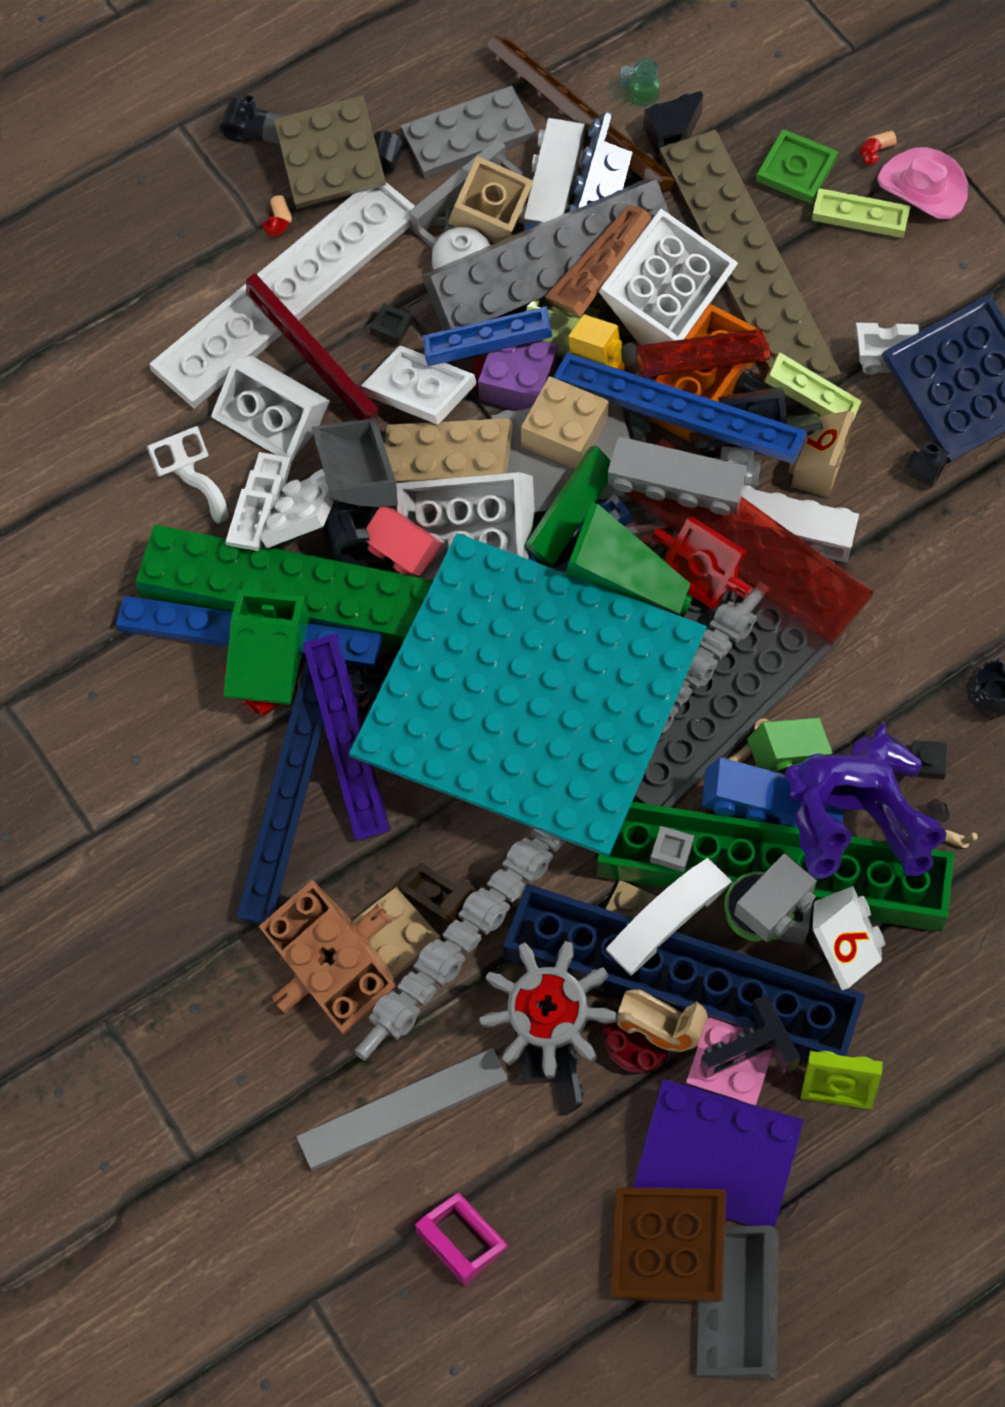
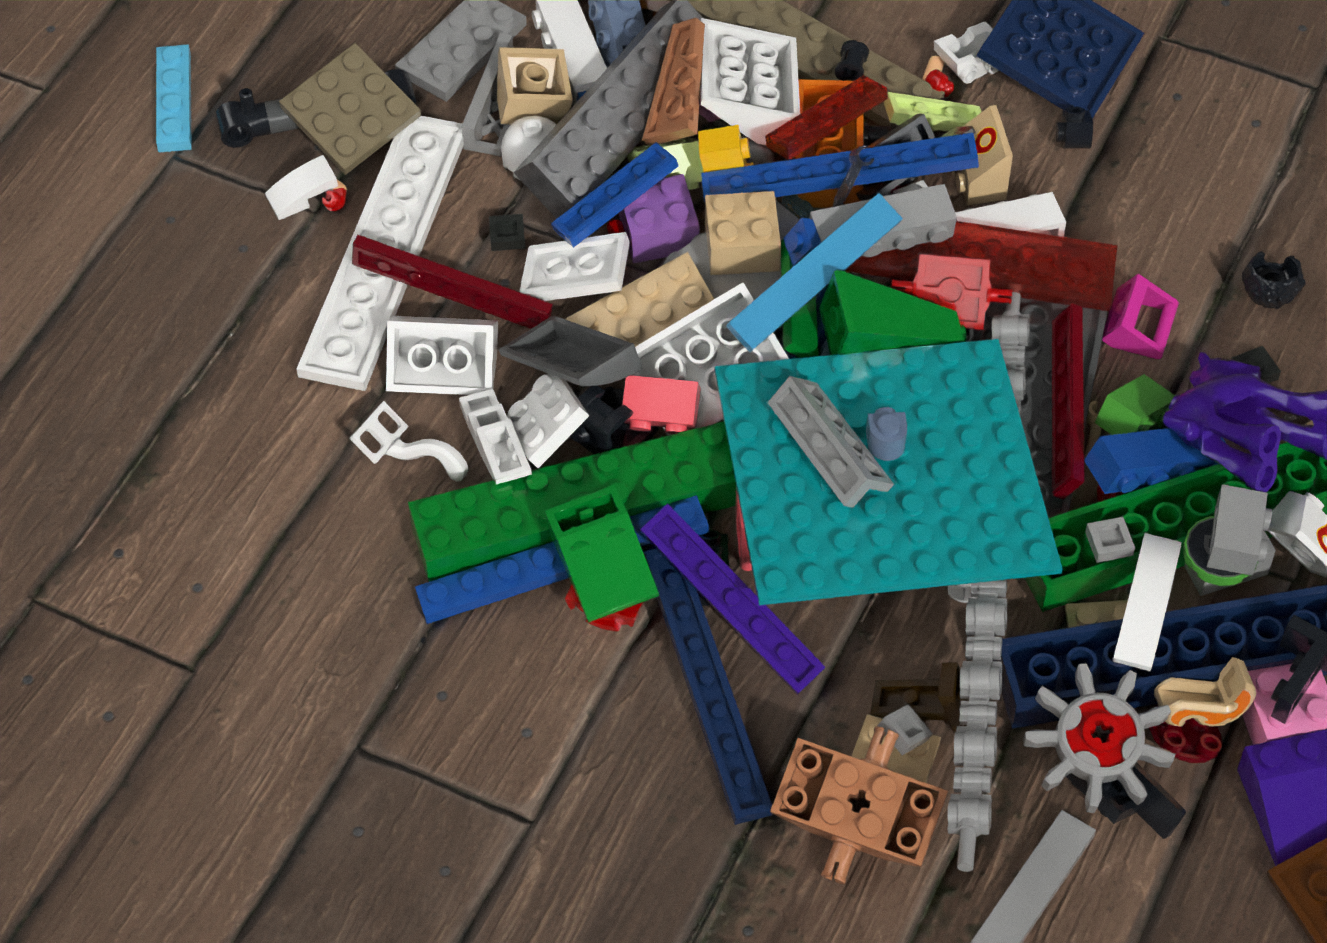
camera: 30 degrees left, 10 degrees down
(208, 71) = (173, 98): none -> medium azure plate
(253, 201) = (293, 190): none -> white slope
(407, 917) = (908, 726): none -> light grey plate
(487, 642) = (828, 440): none -> light grey fence
(544, 665) = (886, 433): none -> sand blue plate
(578, 492) = (813, 272): none -> dark azure tile
(597, 459) = (801, 240): none -> blue plate
(677, 421) = (851, 176): none -> clear smoke piece
(734, 708) = (1067, 402): none -> dark red tile
(772, 308) = (852, 59): none -> black bush
(843, 356) = (936, 78): none -> red arm
(851, 650) = (1120, 324): none -> dark pink tile

